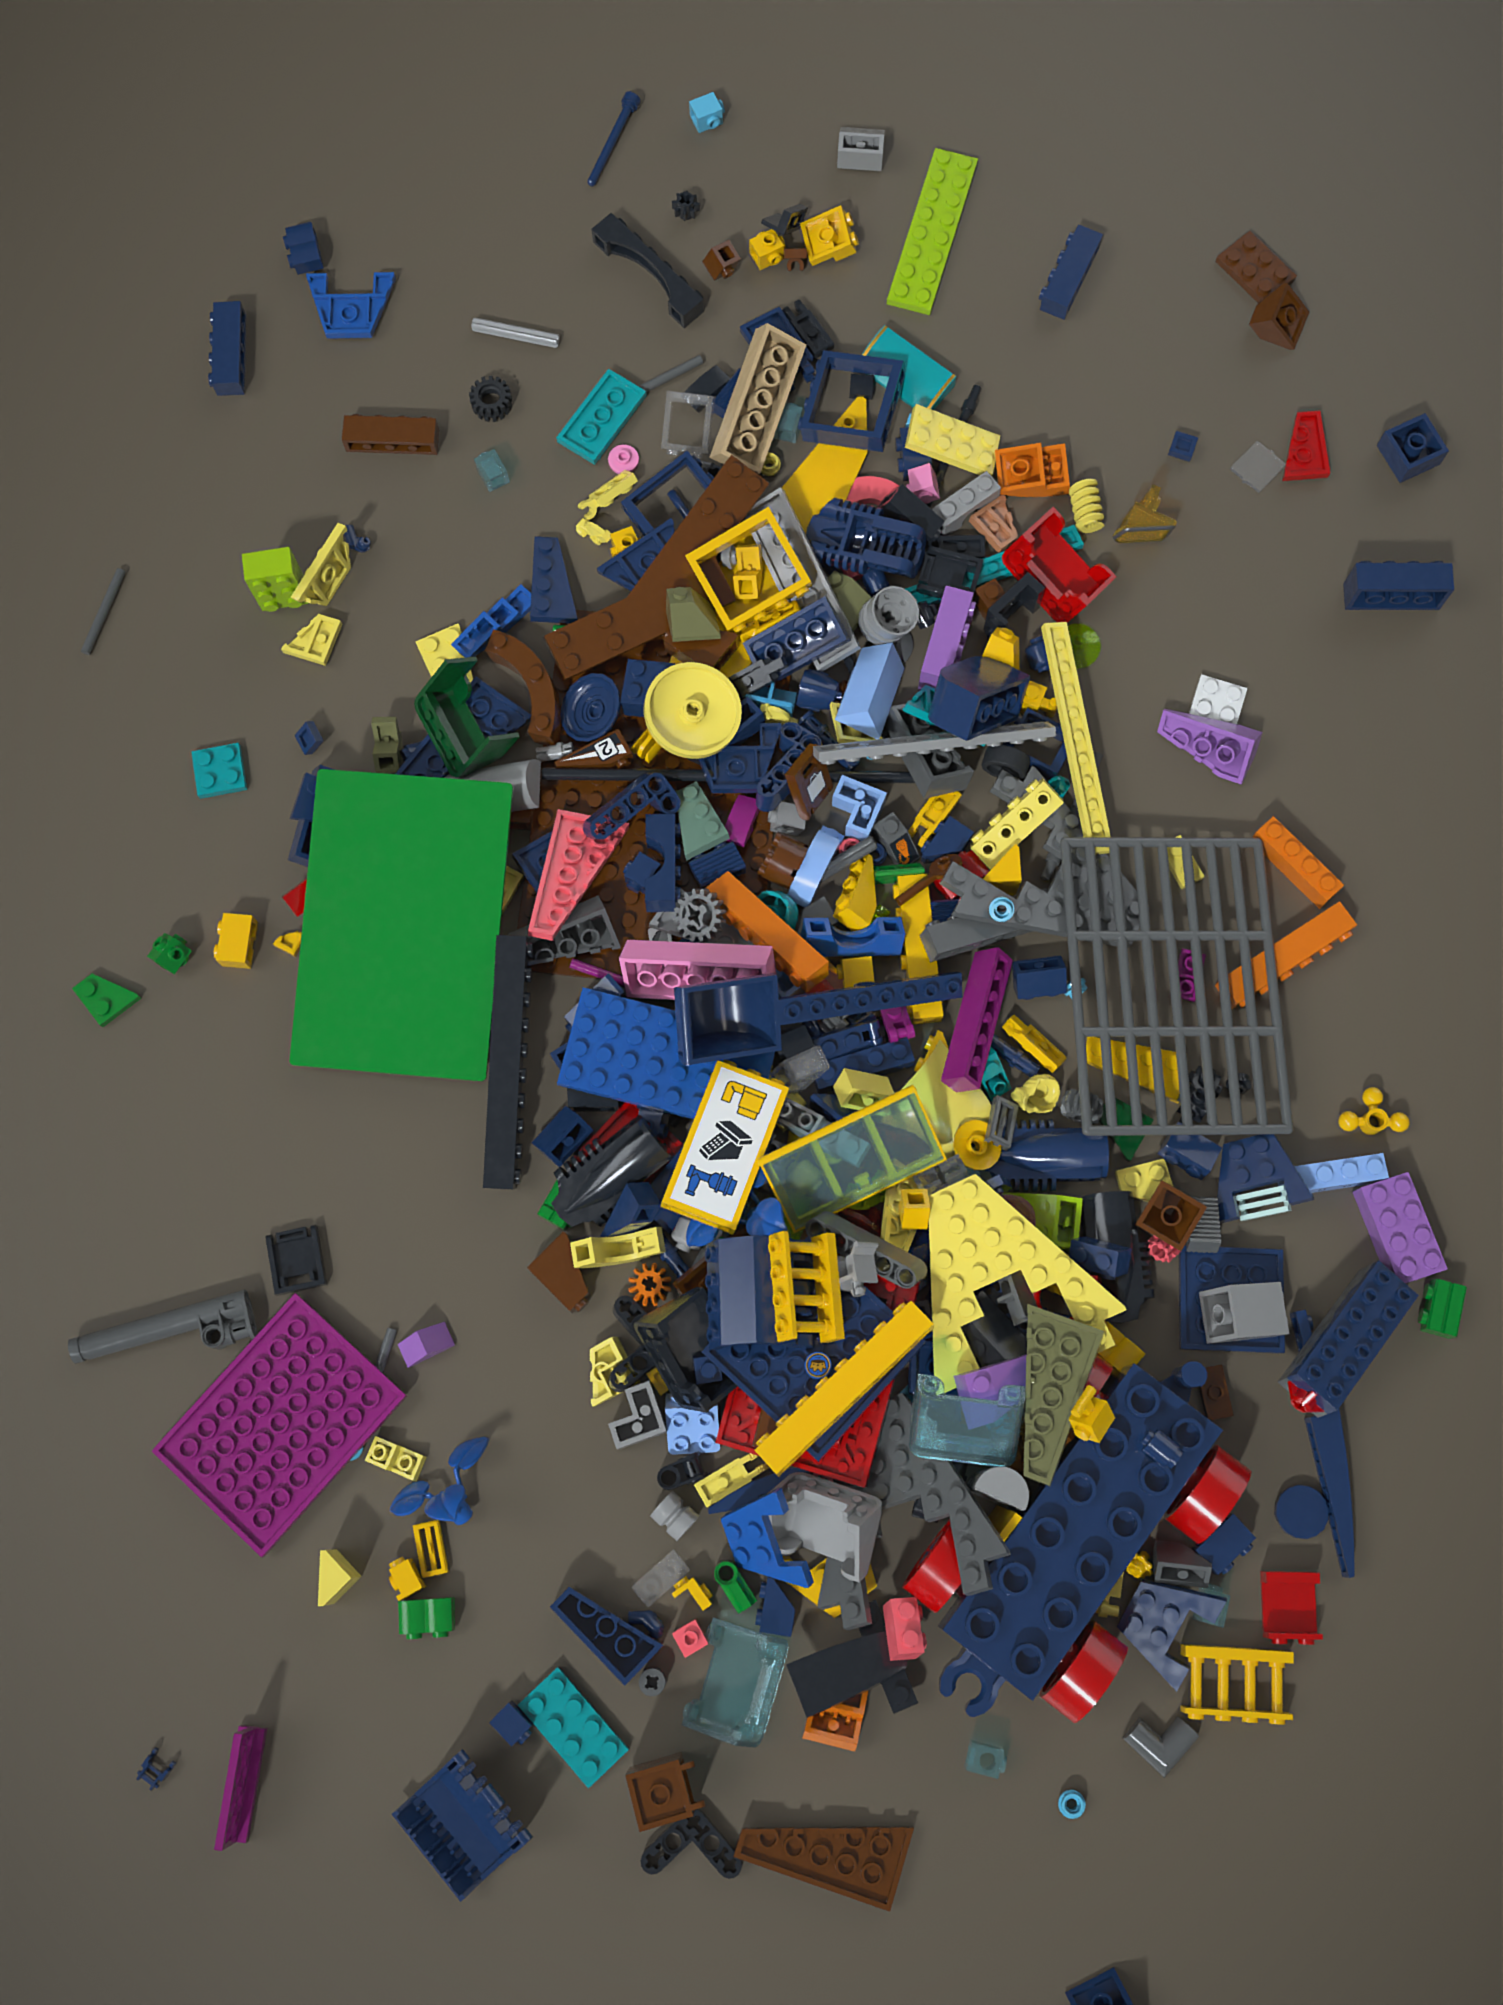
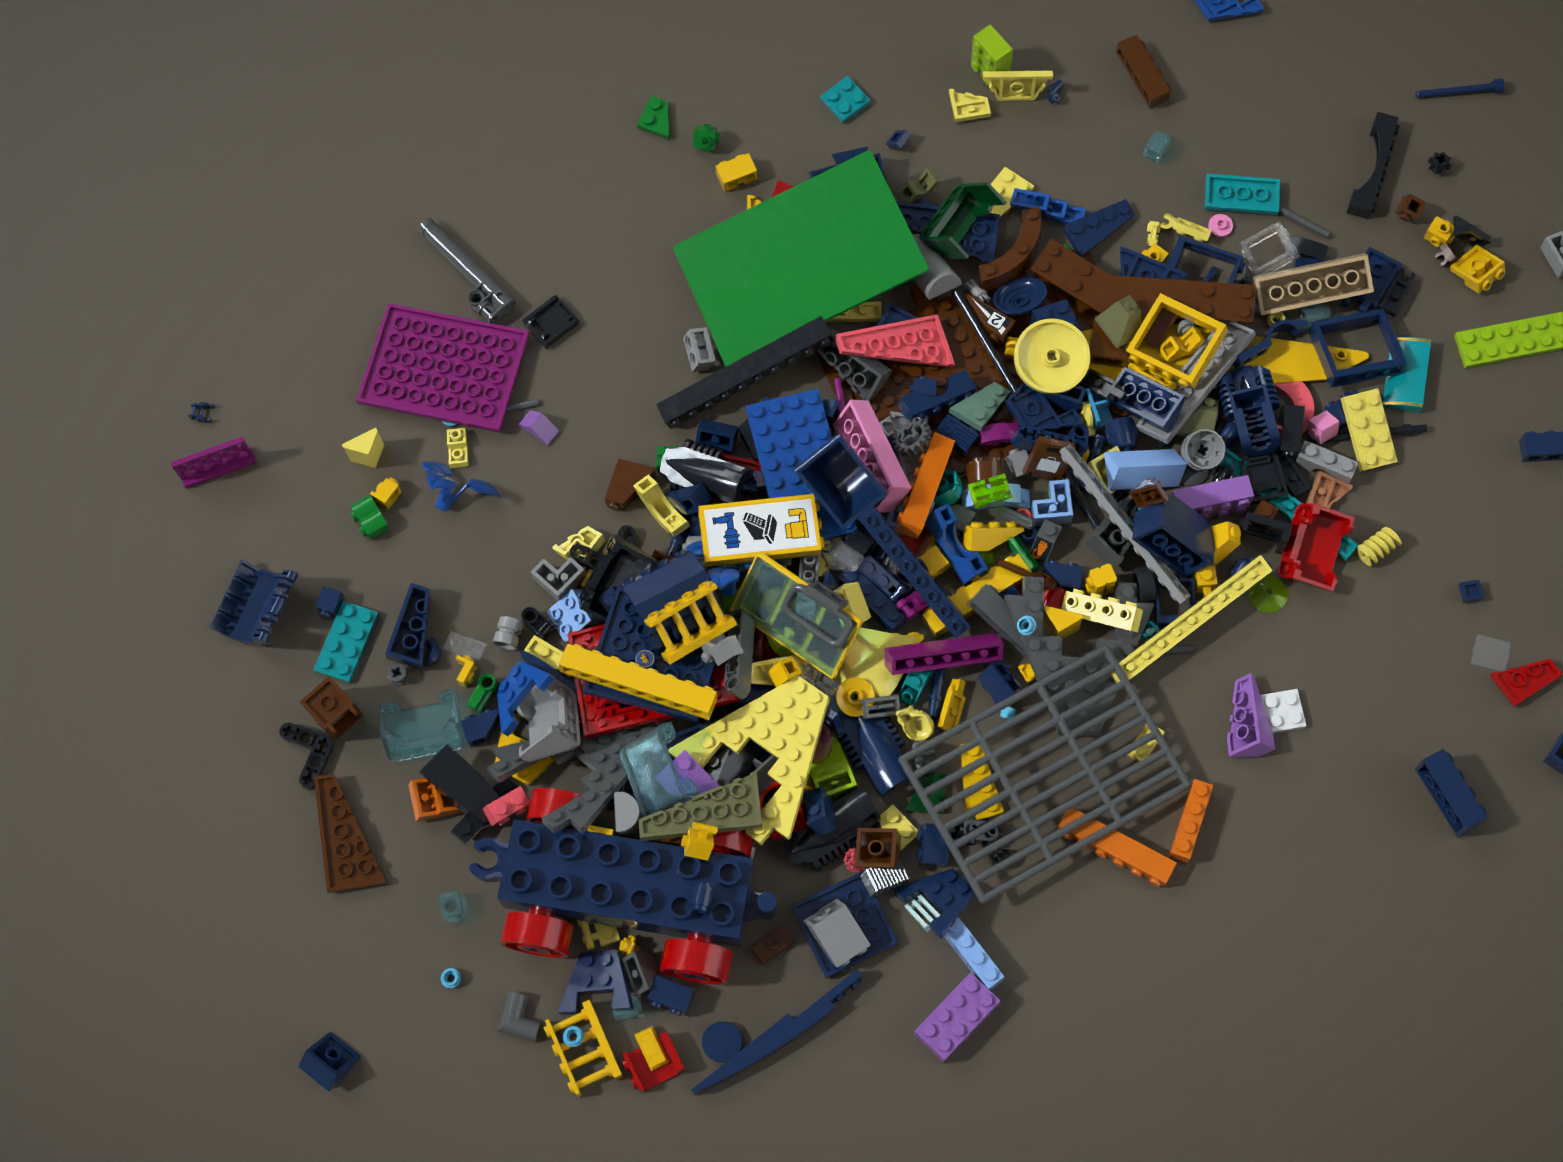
camera: 65 degrees right, 5 degrees down
(420, 1550) = (416, 504): yellow tile -> none
(441, 1101) = (699, 349): none -> light grey brick
(490, 410) = (1213, 109): black tyre -> none
(515, 332) = (1270, 107): light grey axle -> none
(627, 809) = (961, 356): dark blue beam -> none
(657, 1279) = (653, 534): orange gear -> none
(690, 1638) = (435, 682): coral brick -> none
(706, 112) = (1523, 138): medium azure brick -> none
(790, 483) = (1293, 327): none -> dark blue piece
(820, 854) = (982, 495): none -> clear neon green piece
(861, 386) = (1376, 350): black tile -> none
(865, 1111) = (826, 598): none -> dark grey bar
(922, 692) = (1148, 493): none -> reddish brown slope
(932, 813) = (1081, 556): yellow hinge -> none
(978, 806) = (1101, 580): none -> yellow brick
(1033, 470) = (1383, 497): orange slope -> none
(1036, 941) = (1027, 672): none -> yellow tile
(1122, 1353) = (767, 861): yellow brick -> none
(1143, 522) = (1387, 589): clear yellow piece -> none
(1186, 974) = (1072, 790): magenta slope -> none
(1229, 1687) = (567, 1033): none -> medium azure plate
(1271, 1599) = (651, 1048): none -> yellow tile
(1347, 1340) = (853, 1009): dark blue piece -> none
(1372, 1098) = (1044, 956): yellow piece -> none
(1442, 1308) = (917, 1073): green brick -> none

